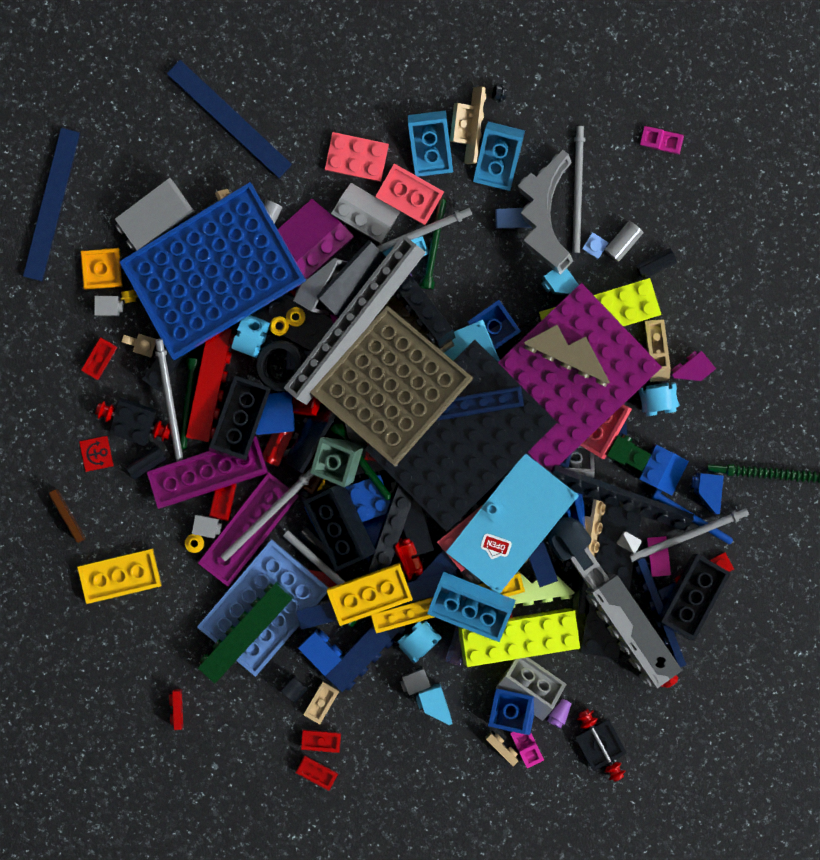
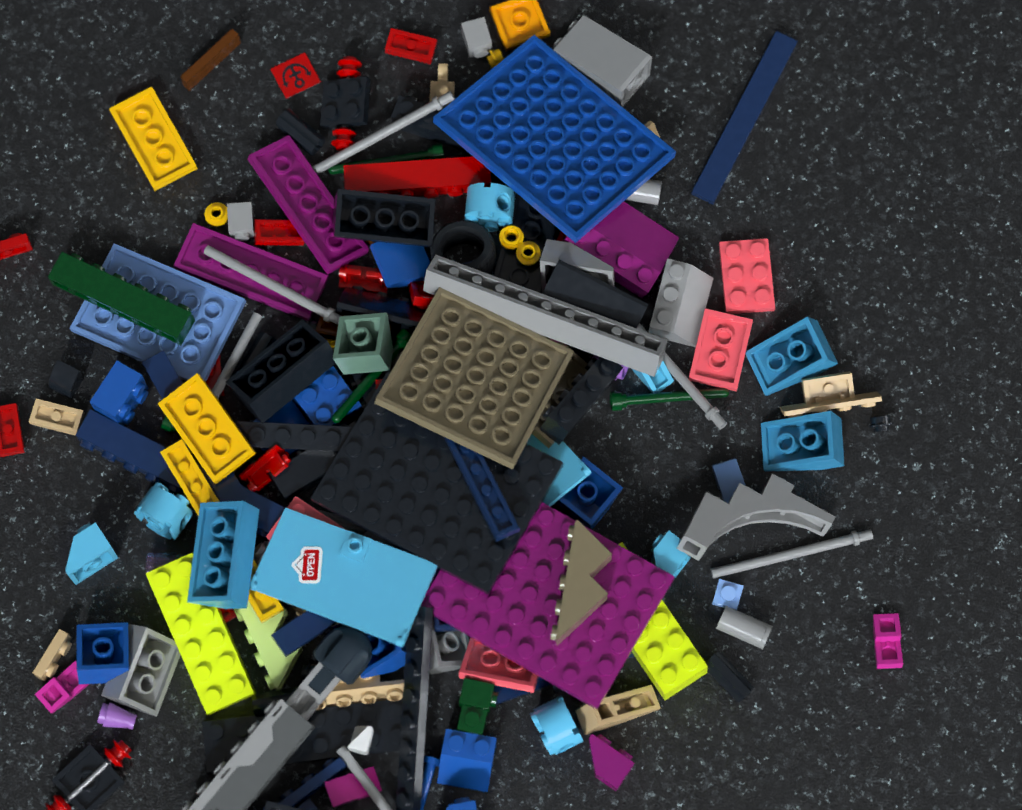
camera: 80 degrees right, 15 degrees down
(415, 681) = (112, 524): light grey brick -> none

